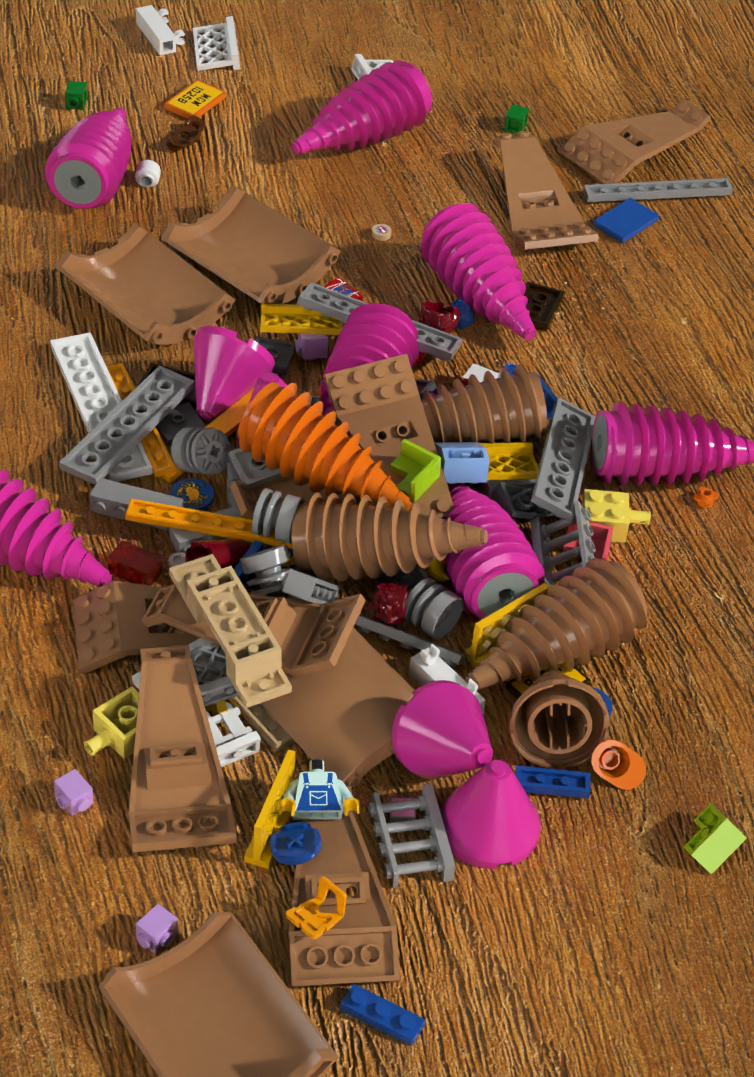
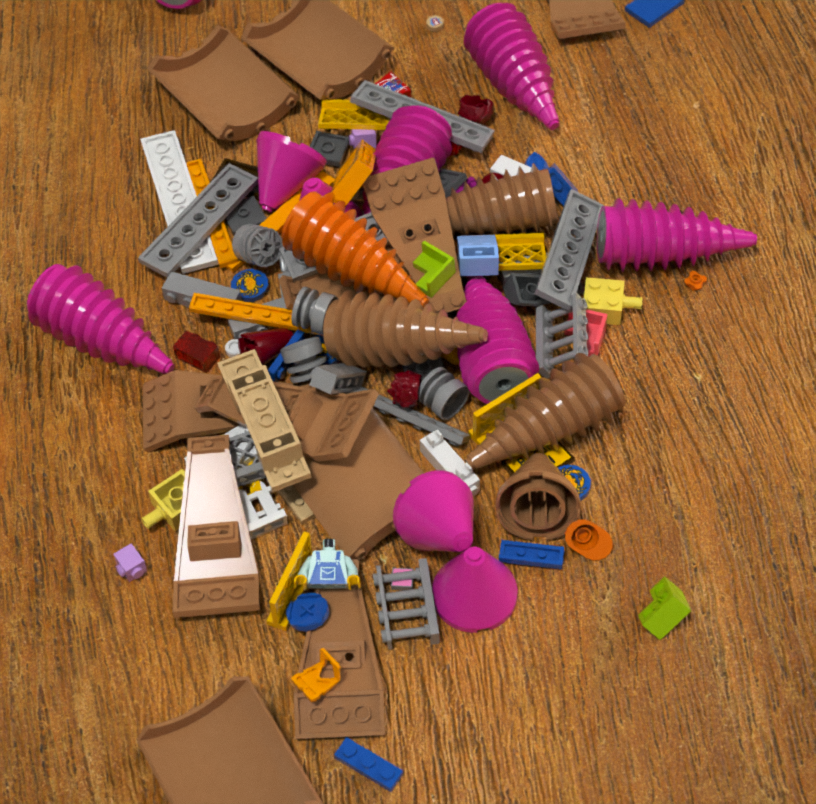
camera: 10 degrees right, 10 degrees up
(156, 929) = (188, 686): lavender brick -> none
(312, 370) = (354, 172): none -> light orange fence
(466, 314) = (500, 103): blue hat -> none
(543, 304) = (569, 92): dark brown tile -> none

